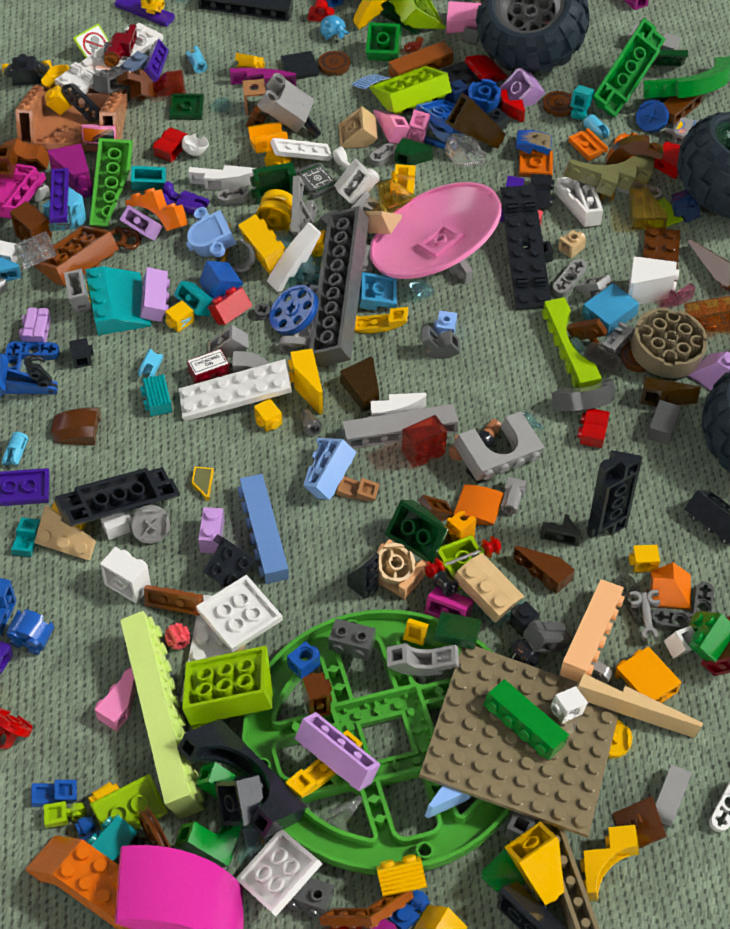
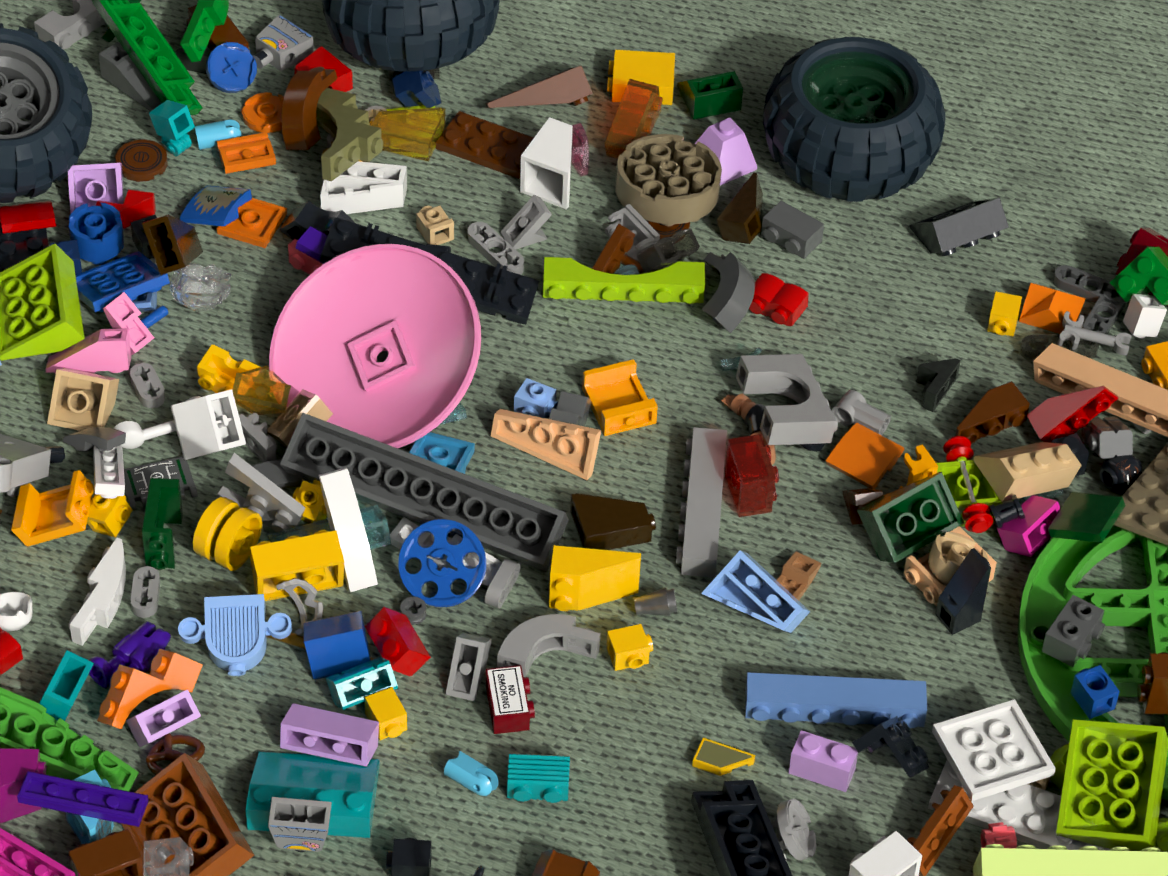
camera: 75 degrees left, 5 degrees down
(235, 390) = (573, 672): white plate -> none
(328, 142) = (102, 437): none -> dark grey slope
(382, 322) = (506, 457): yellow slope -> none
(398, 403) = (666, 497): white slope -> none
(412, 152) = (163, 348): dark green slope -> none
(413, 338) = (553, 441): none -> light nougat wing
(415, 631) = (1077, 560): yellow tile -> none
(422, 662) = (1127, 558): light grey arch -> none
(470, 366) = (618, 398): none -> light orange panel
(553, 606) = (1069, 412): none -> red slope
(611, 307) = (577, 222): dark azure brick -> none
(614, 493) = (948, 288): black slope -> none

